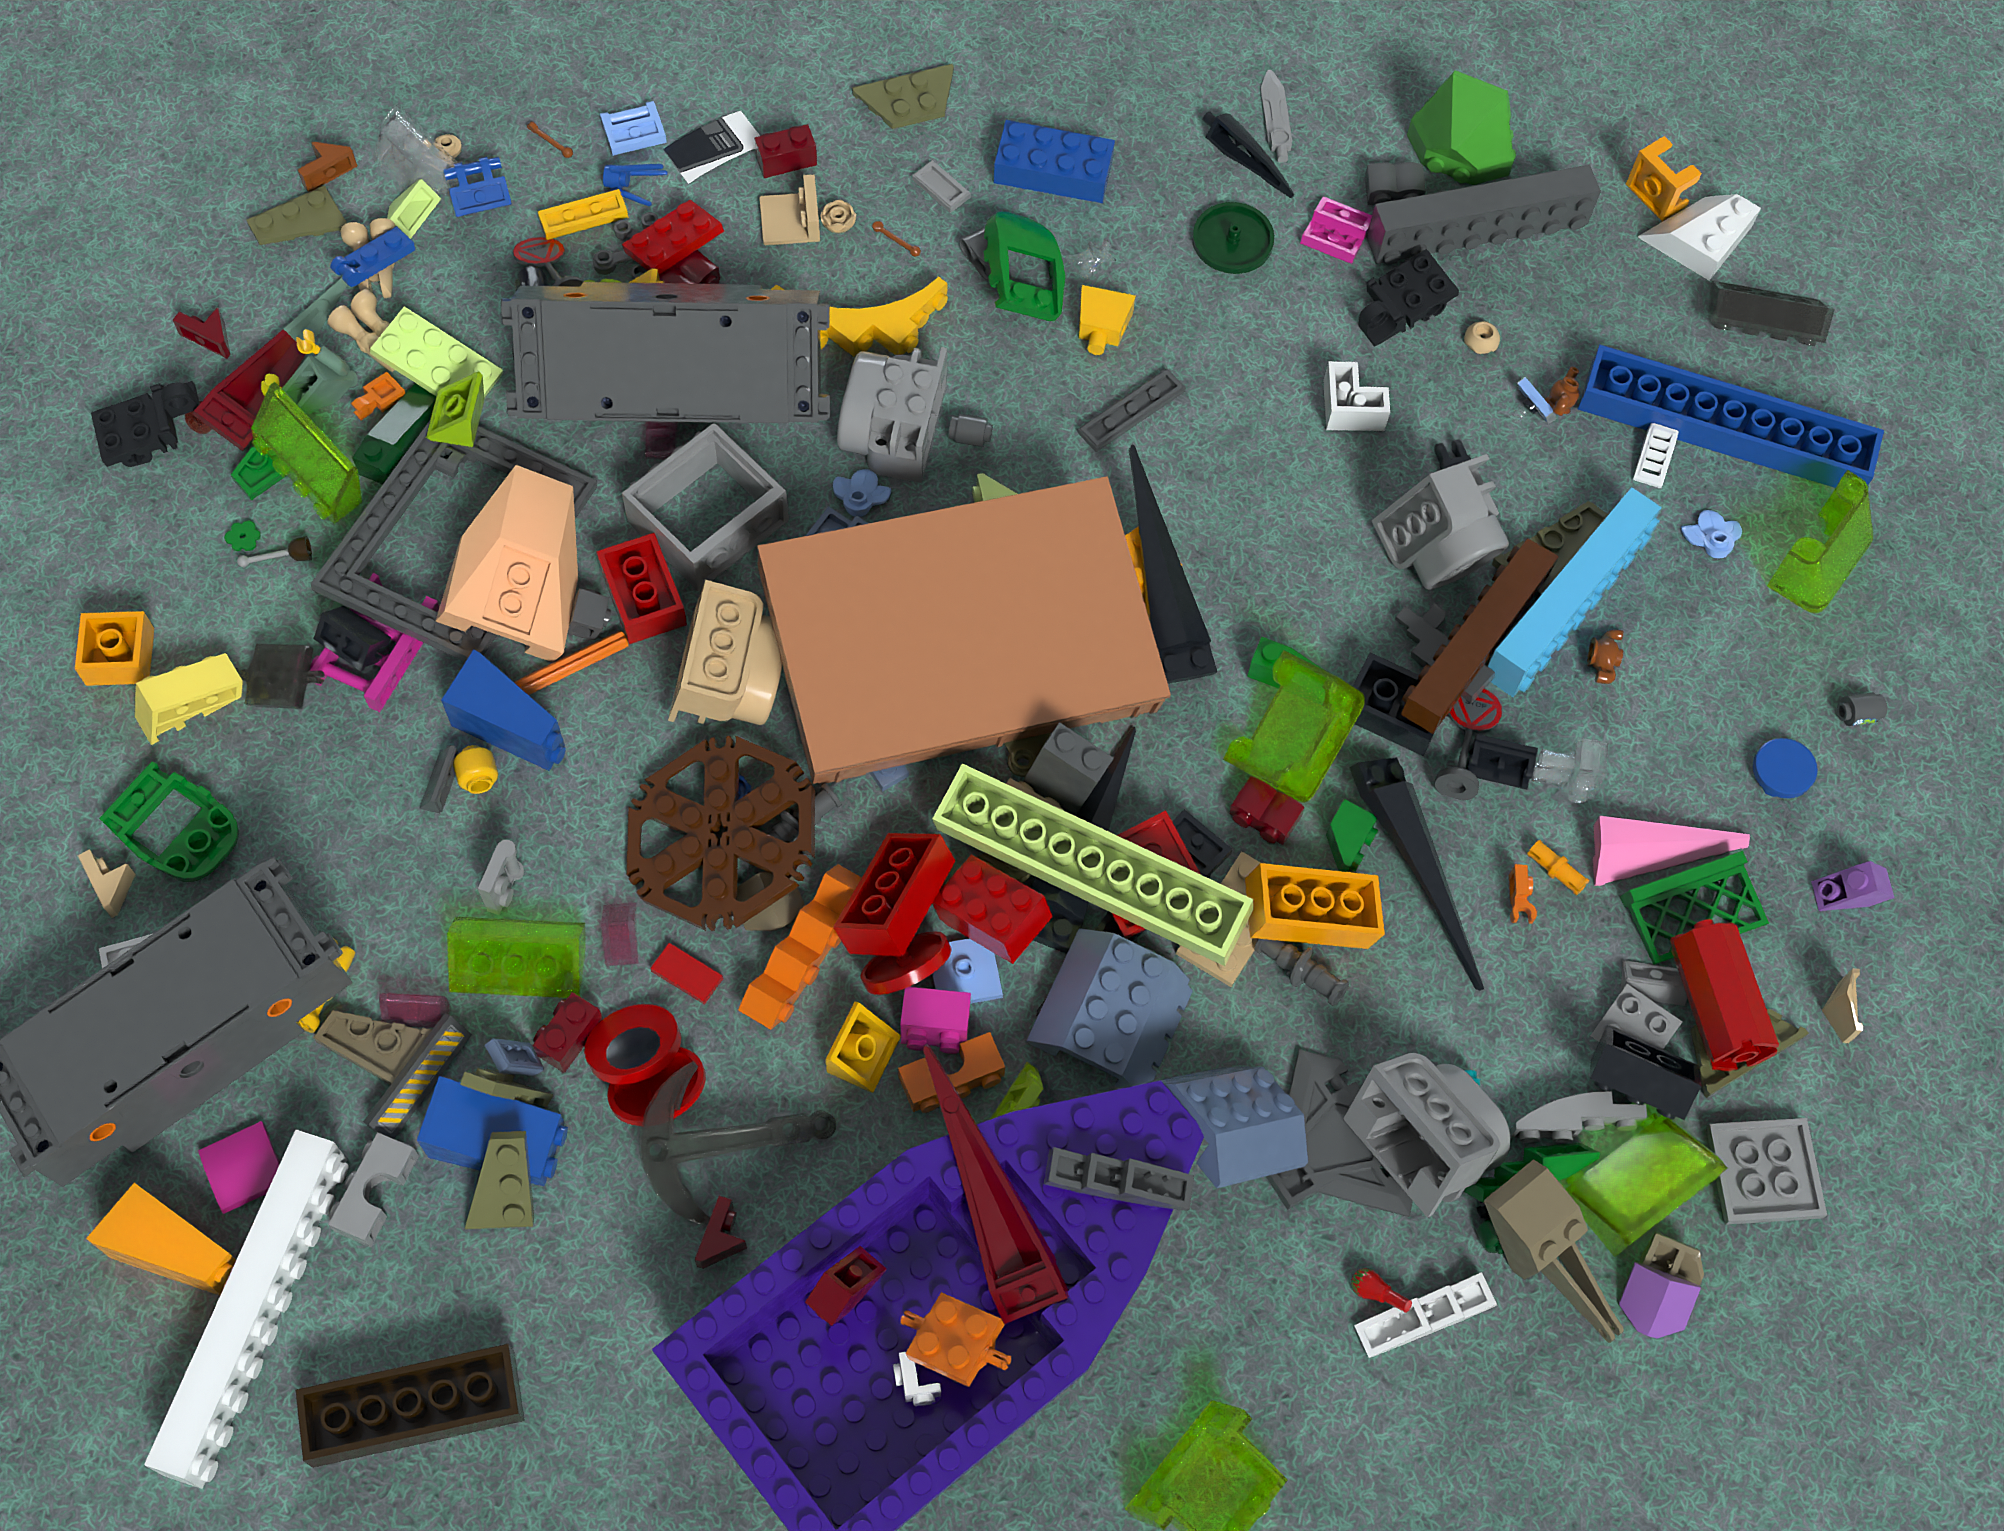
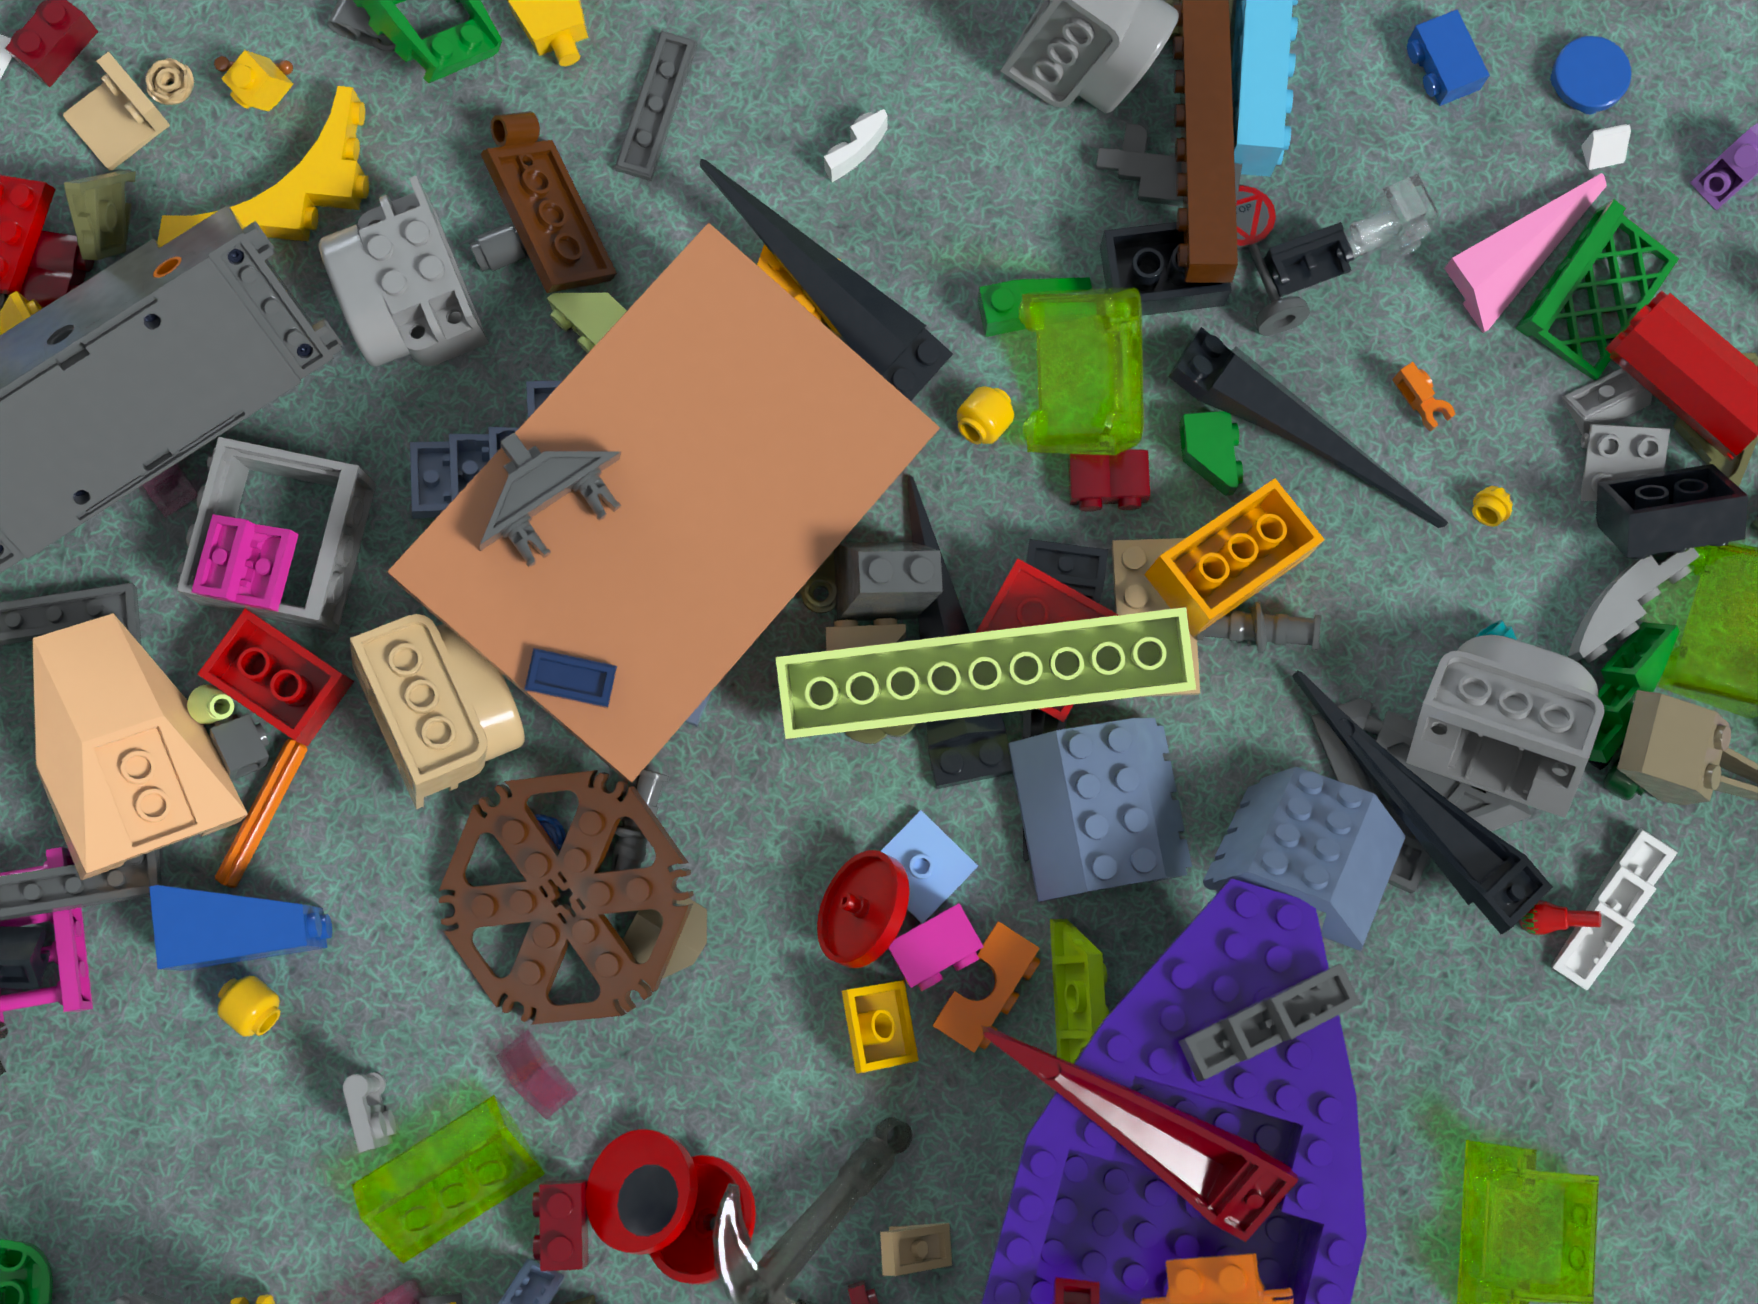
camera: 30 degrees left, 15 degrees up
(440, 781) = (219, 1043): dark grey slope -> none
(583, 573) = (202, 702): none -> yellowish green cone
(674, 501) = (245, 562): none -> dark pink slope
(686, 973) = (637, 1069): red tile -> none
(740, 257) = (100, 213): none -> olive wing
(782, 1204) = (915, 1248): none -> tan slope
(798, 956) = (742, 964): orange brick -> none
(822, 682) = (570, 678): none -> dark blue tile
(860, 492) = (428, 393): light blue plate -> none
(891, 246) = (256, 82): none -> yellow brick
(891, 554) = (538, 482): none -> dark grey connector
(894, 894) = (800, 844): red brick -> none
(992, 908) = (908, 786): red piece -> none
(1016, 422) = (545, 205): none -> reddish brown hinge
(1210, 720) = (985, 415): none -> yellow head
(1255, 507) = (865, 136): none -> white slope
(1342, 1201) = (1469, 855): none -> black plate
(1521, 995) = (1492, 506): none -> yellow plate
(1558, 867) = (1438, 339): light orange pin -> none
(1605, 655) = (1336, 66): dark orange piece -> none
(1687, 696) = (1447, 57): none -> blue brick
(1764, 819) = (1606, 146): none -> white slope

